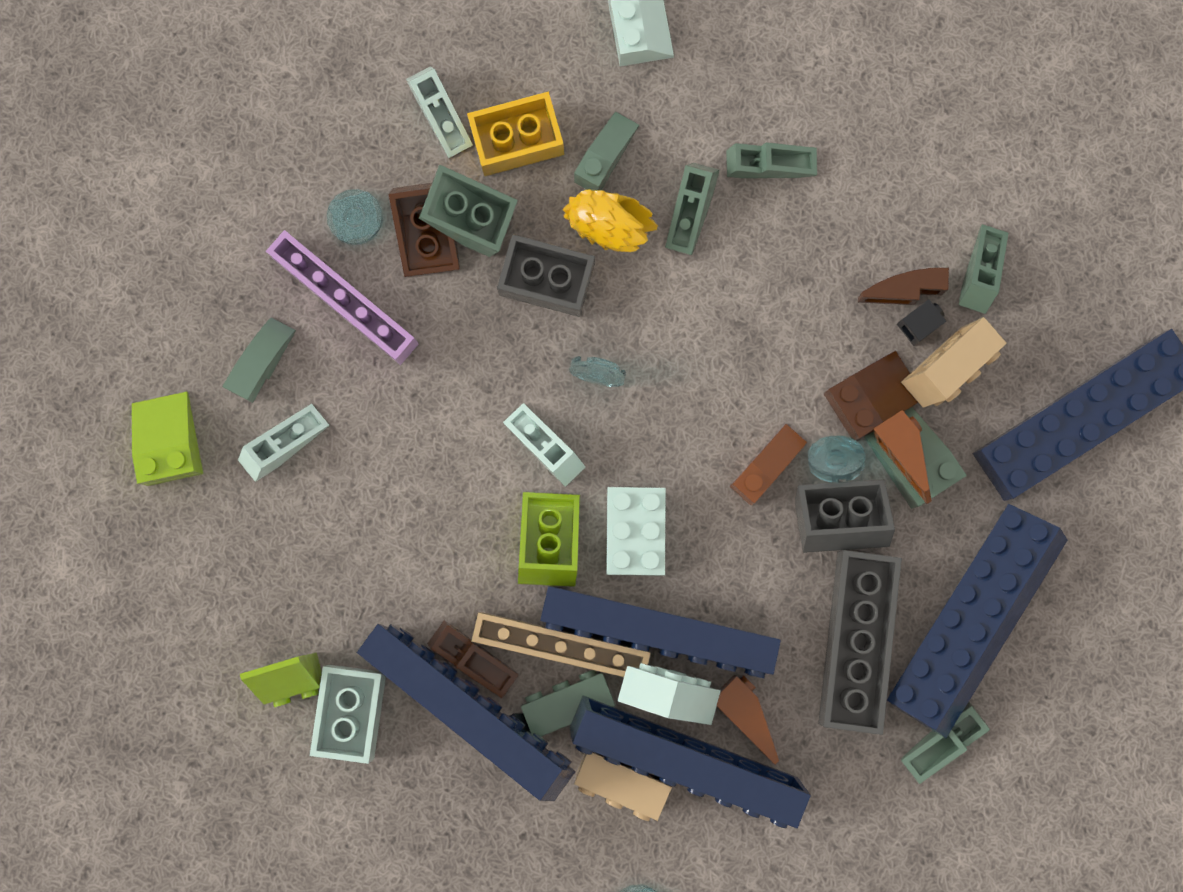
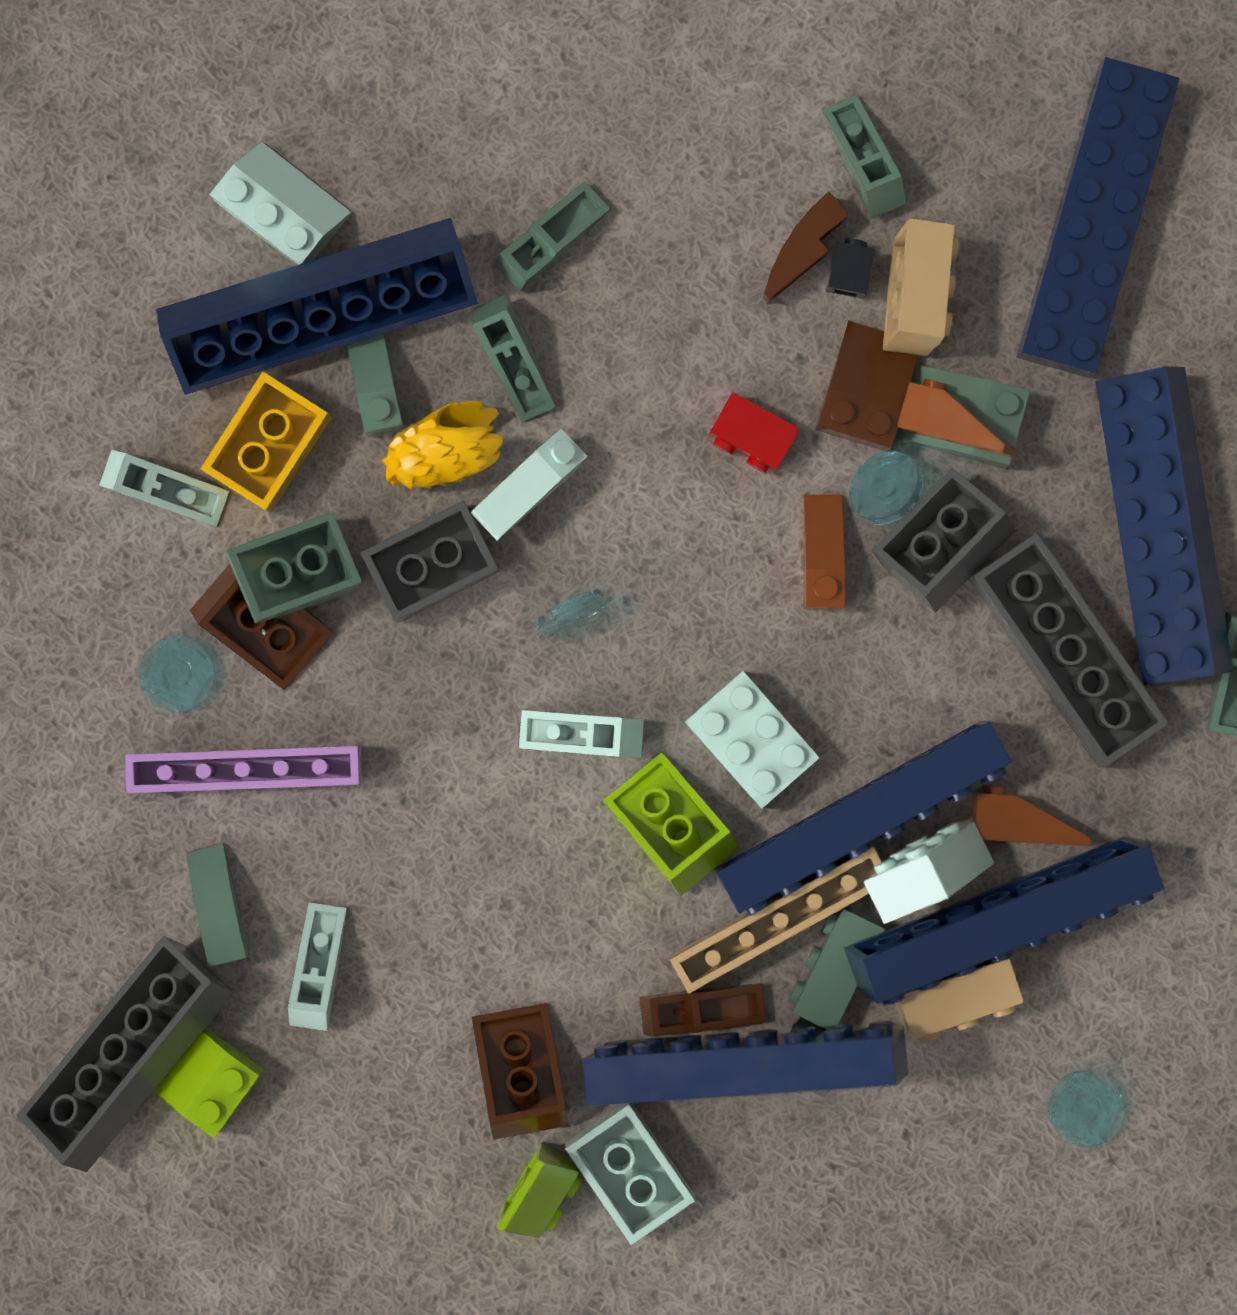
camera: 40 degrees left, 5 degrees up
(132, 393) = (124, 1054): none -> dark grey brick
(339, 601) = (520, 1071): none -> reddish brown slope
(609, 84) = (316, 306): none -> dark blue brick
(639, 281) = (529, 484): none -> light aqua slope
(787, 363) = (753, 433): none -> red brick

